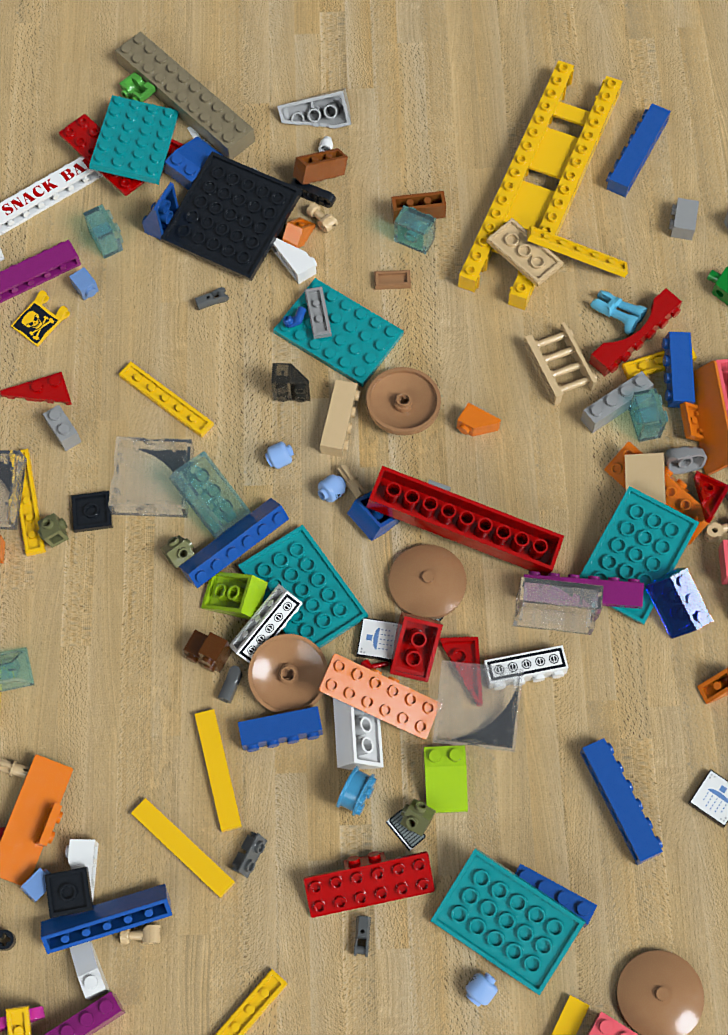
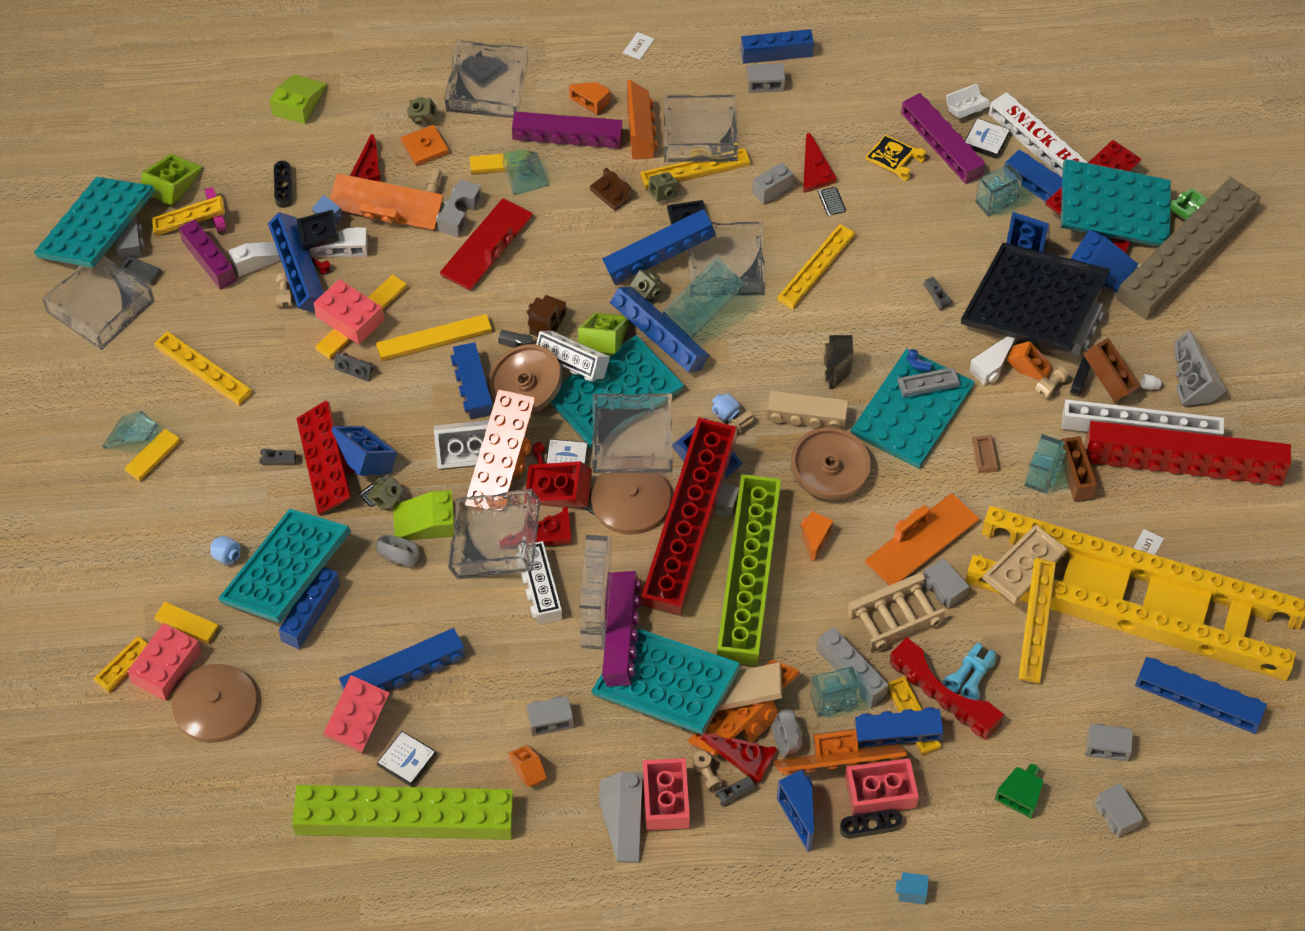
camera: 85 degrees right, 10 degrees down
(29, 239) = (987, 137): none -> white tile
(45, 583) = (611, 190): none -> reddish brown bracket
(64, 749) = (463, 196): none -> light grey arch
(84, 283) = (938, 184): medium blue brick -> none
(86, 380) = (831, 201): none -> sticker
(93, 195) = (1035, 175): none -> blue brick
(101, 712) = (486, 244): none -> red bracket
(110, 889) = (323, 267): none -> red hand
(137, 534) = (659, 246): none -> blue brick
(184, 857) = (349, 311): none -> coral brick
(279, 455) = (759, 361): light blue head -> none
(356, 791) = (409, 437): dark azure wheel -> none
(364, 570) = (632, 433): none -> clear tile
(366, 839) = (364, 450): none -> blue slope
(373, 154) = (1078, 414): none -> white brick
(409, 123) = (1187, 453): none -> red brick
(483, 337) = (921, 538): none -> orange bracket
(486, 804) = (398, 550): none -> light grey piece
(491, 171) = (1148, 542): none -> white sticker
(518, 477) = (749, 569): none -> lime brick
(531, 321) = (945, 583): none -> light grey brick
(671, 662) = (549, 715): none -> light grey brick
(678, 603) = (613, 719): clear blue slope -> none
(684, 842) = (355, 714): none -> coral brick

